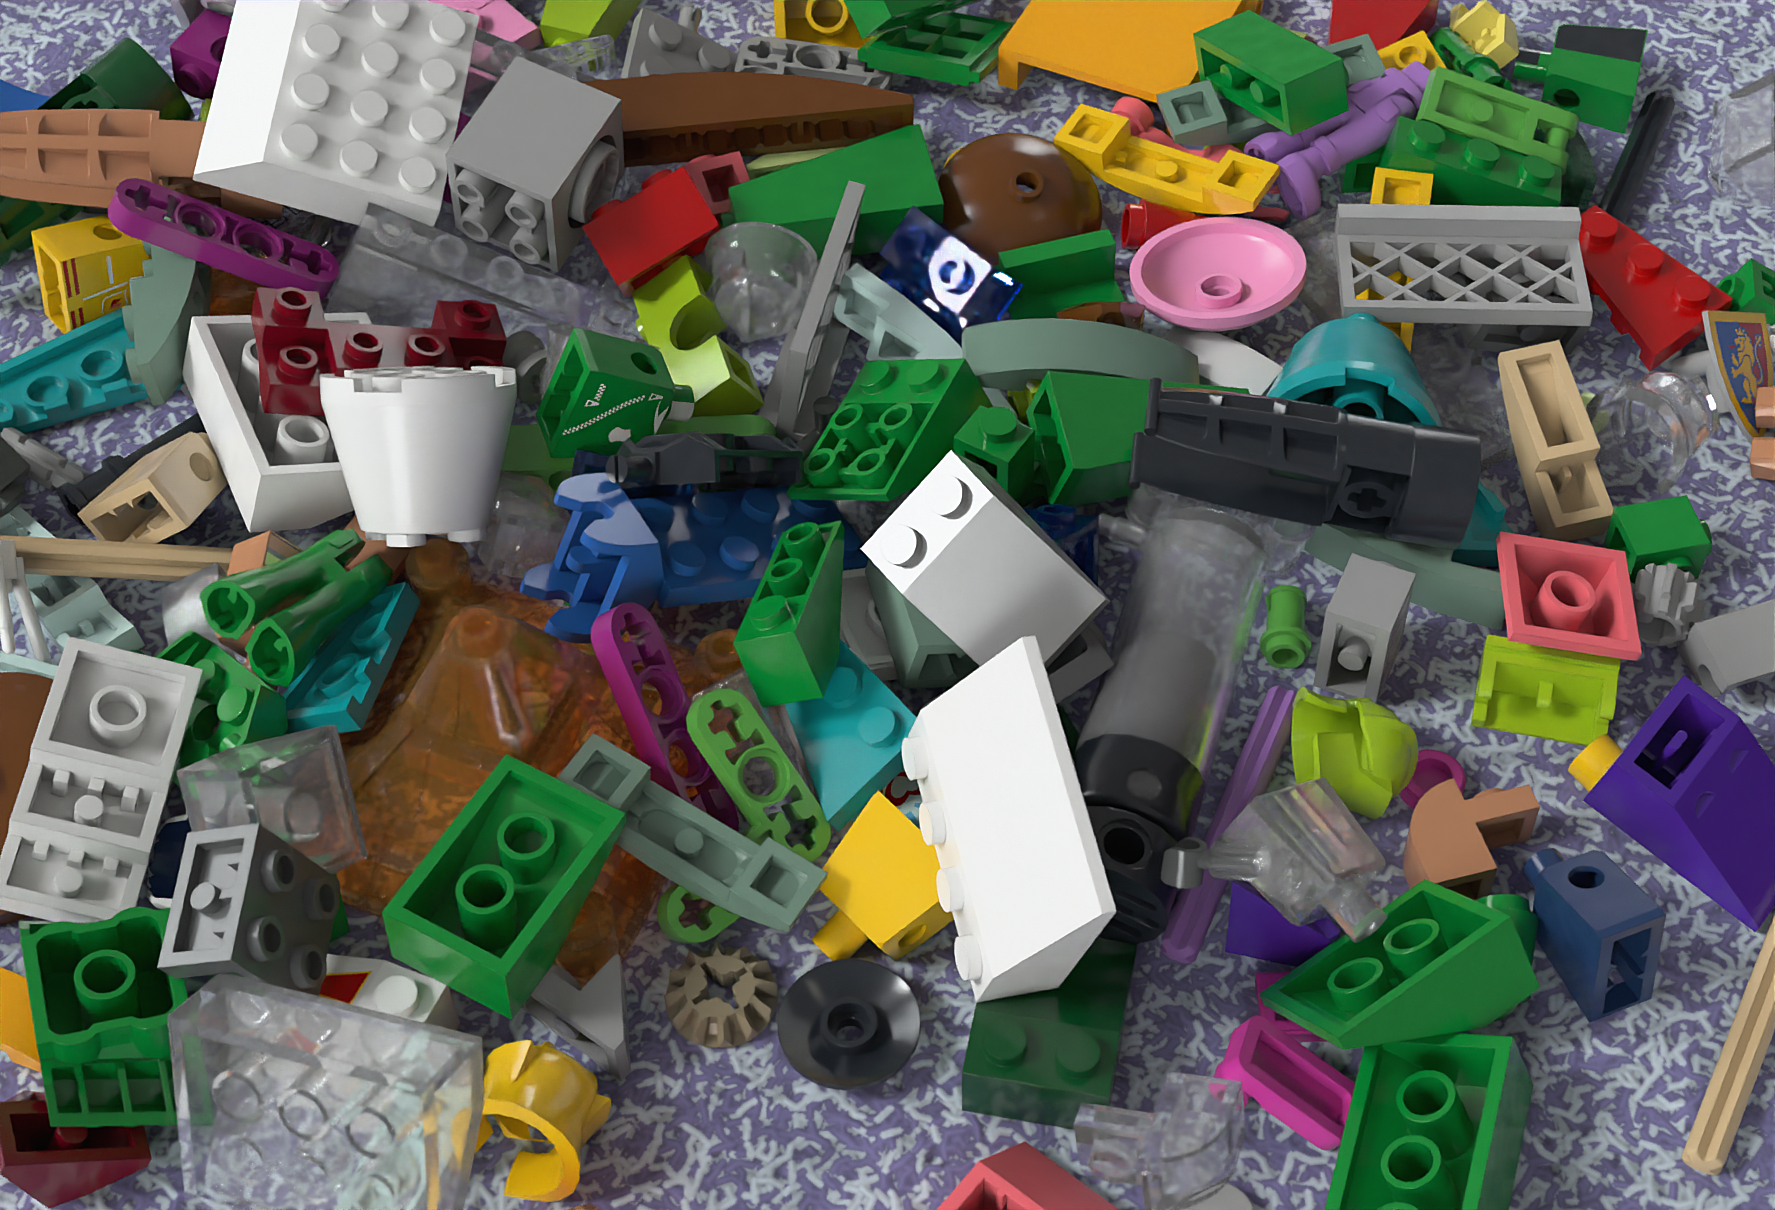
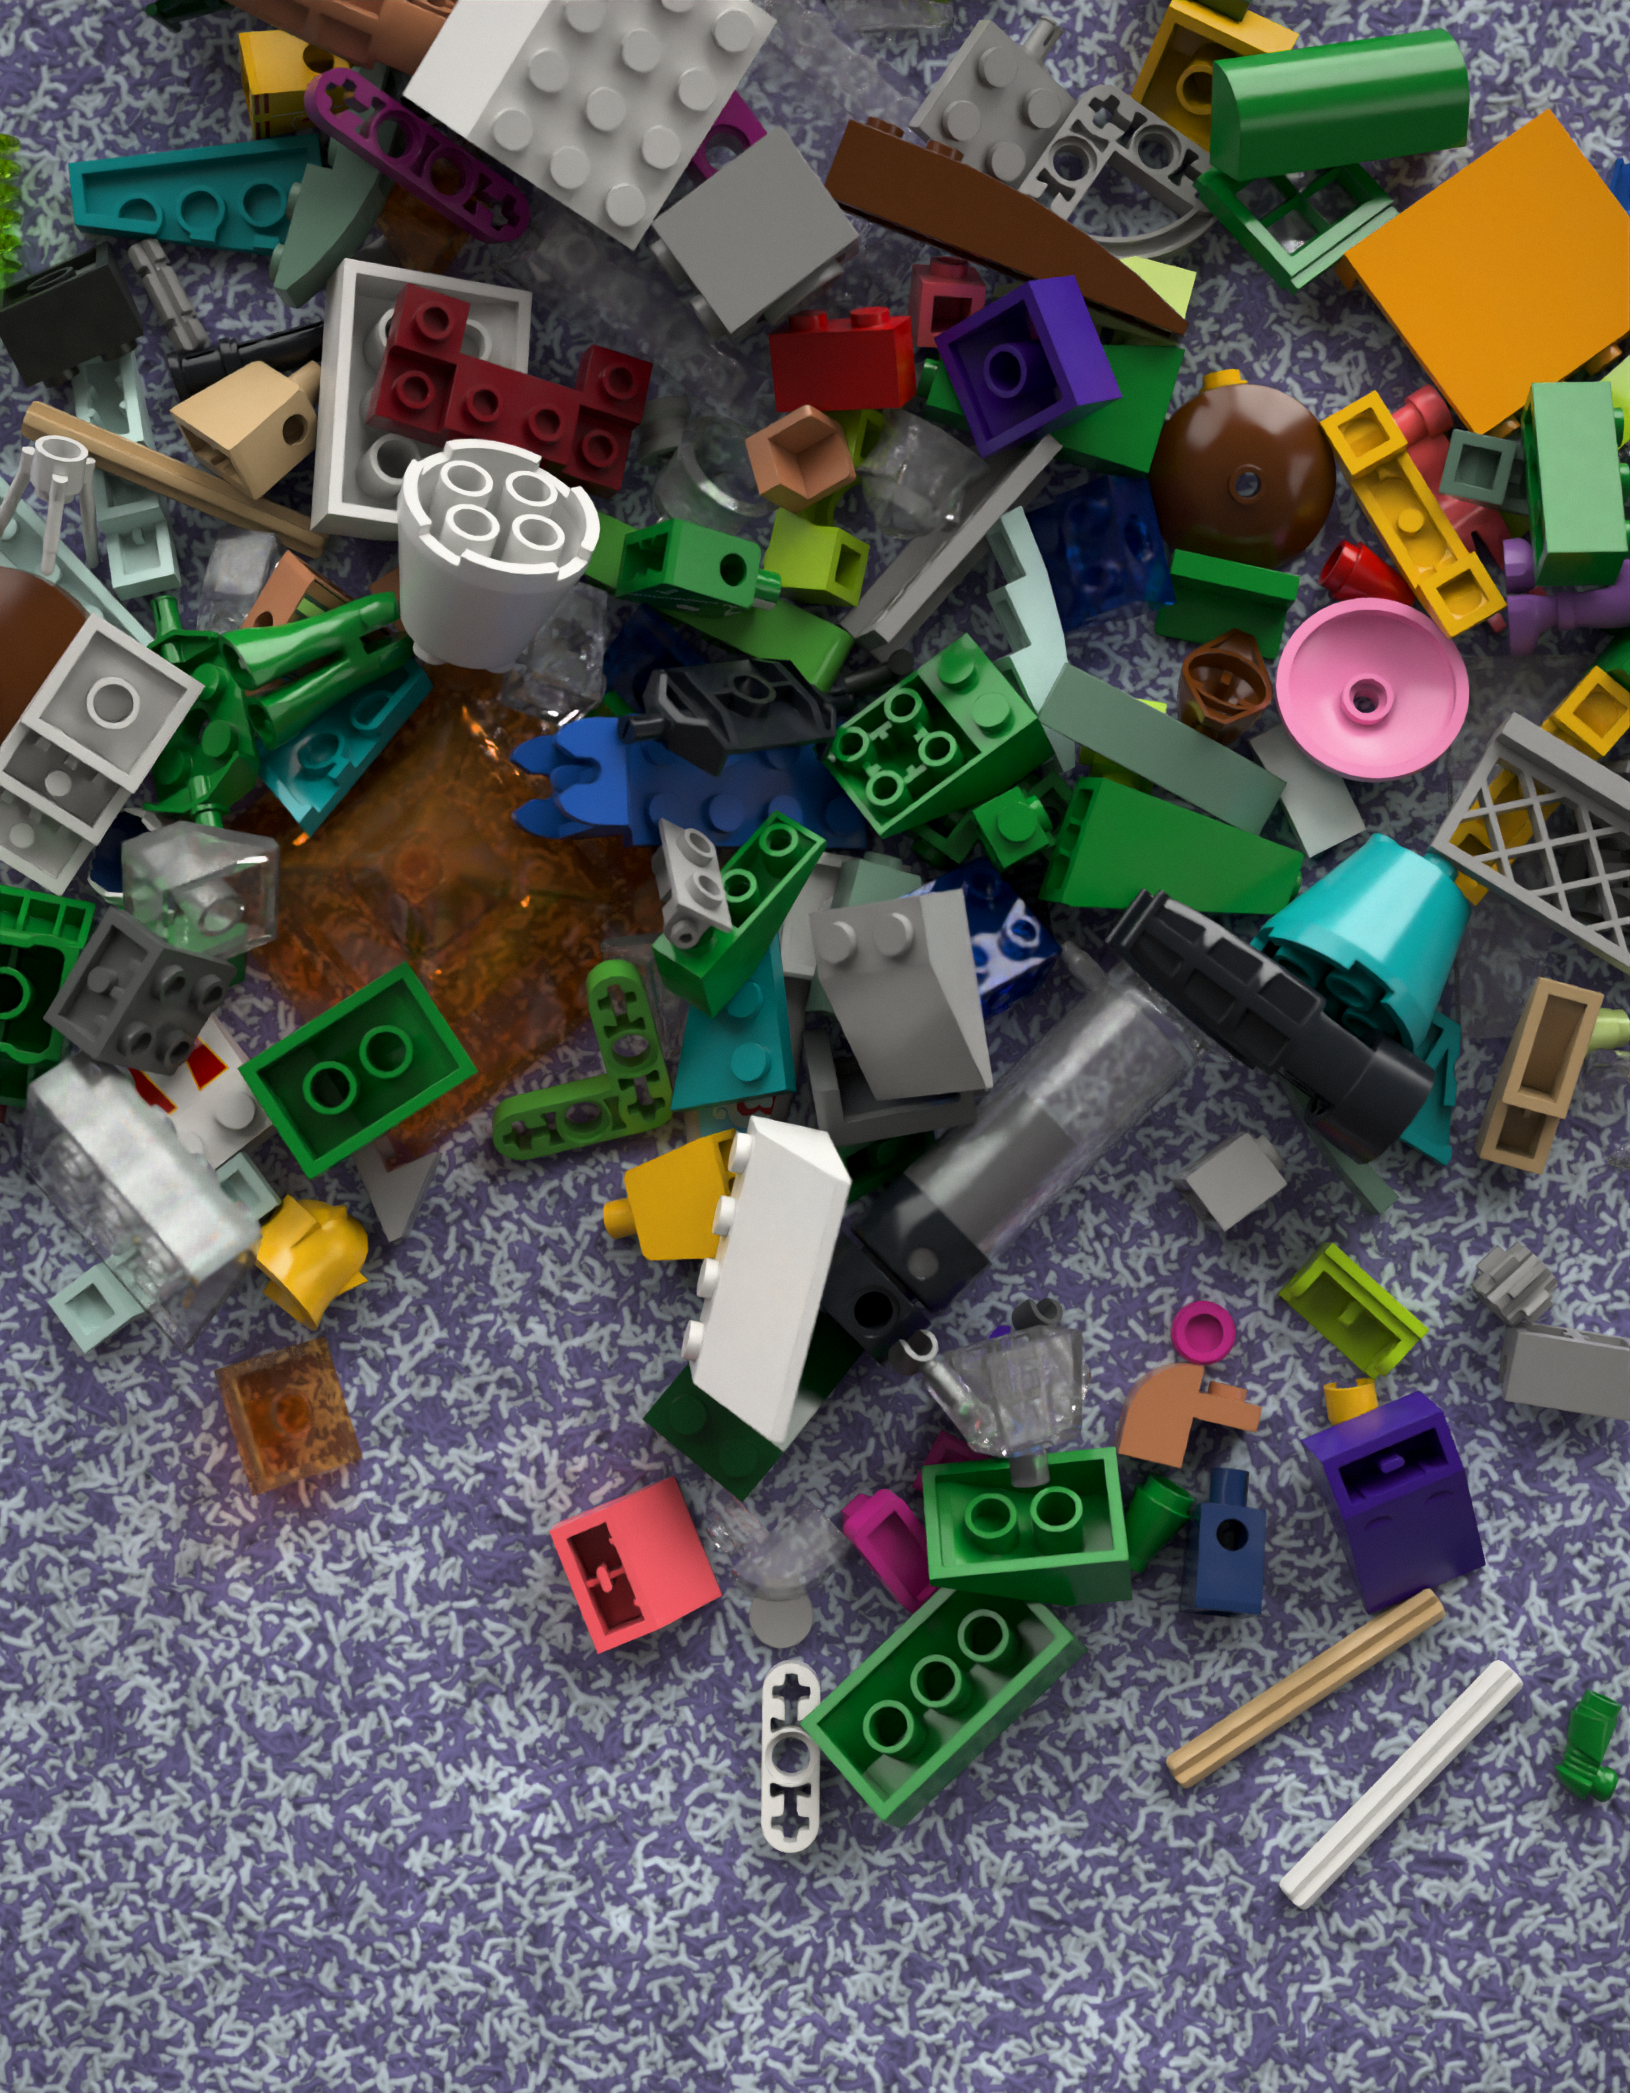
camera: 30 degrees right, 35 degrees up
(653, 732) = (563, 966): magenta beam -> none
(656, 303) = (800, 459): none -> nougat panel
(692, 847) = (536, 1089): sand green slope -> none
(713, 1021) = (533, 1230): dark tan gear -> none
(738, 580) = (689, 884): none -> light grey hinge
(800, 160) = (1027, 365): none -> dark purple slope
(843, 996) = (557, 1309): black dish -> none
(1249, 779) = (1030, 1266): medium lavender axle -> none
(1285, 628) = (1180, 1115): bright green pin -> none
(1355, 747) = (1139, 1288): lime helmet -> none
(1567, 596) = (1418, 1258): coral slope -> none
(1660, 534) = (1563, 1219): green brick -> none

